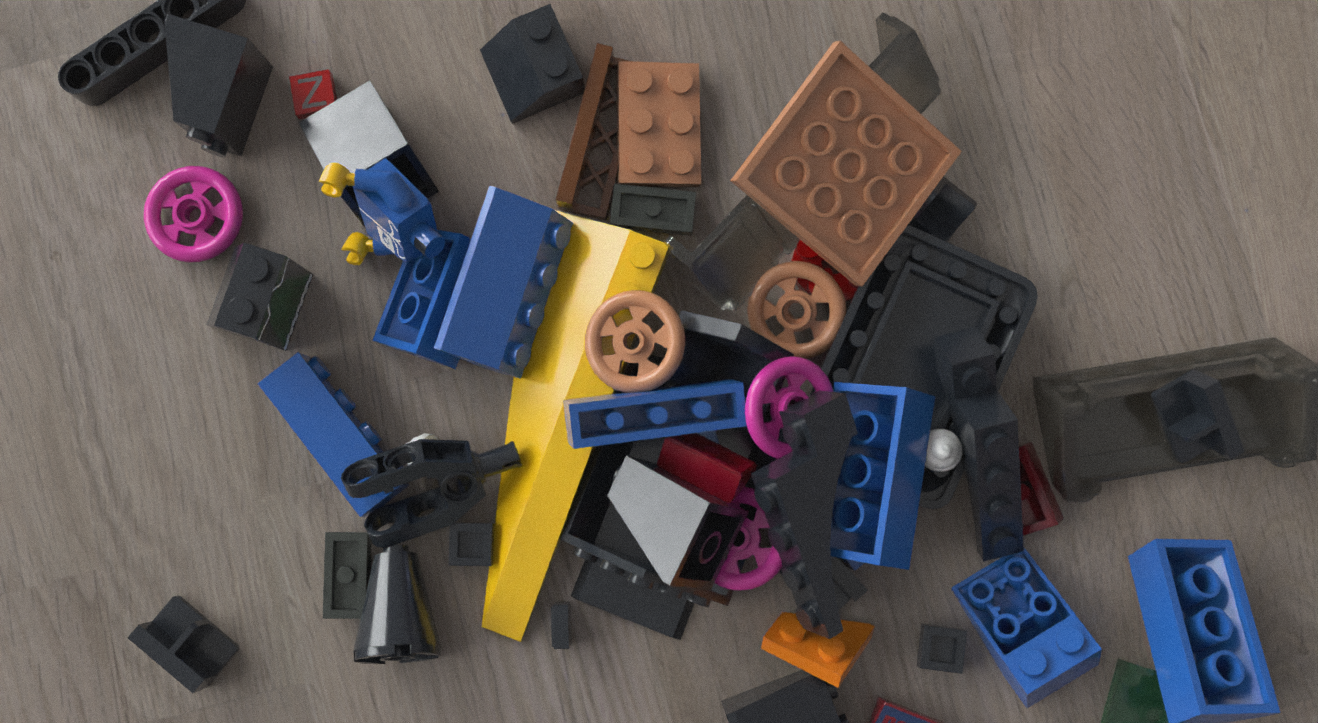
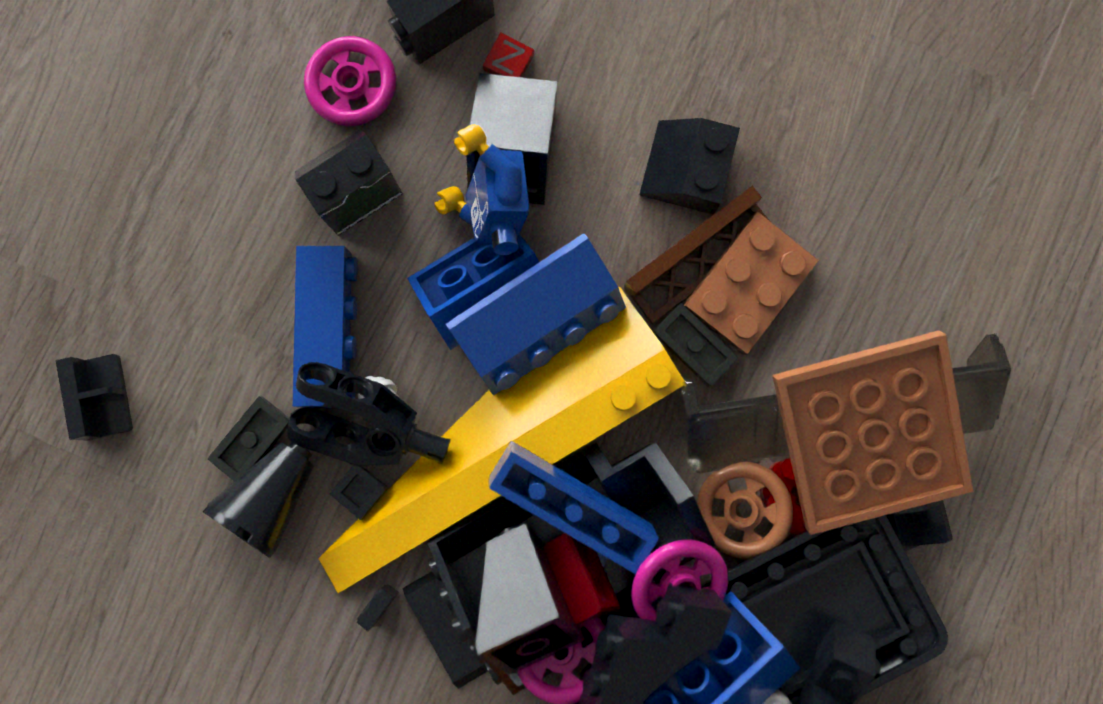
camera: 40 degrees right, 0 degrees up
(649, 374) = (630, 456): nougat plate -> none

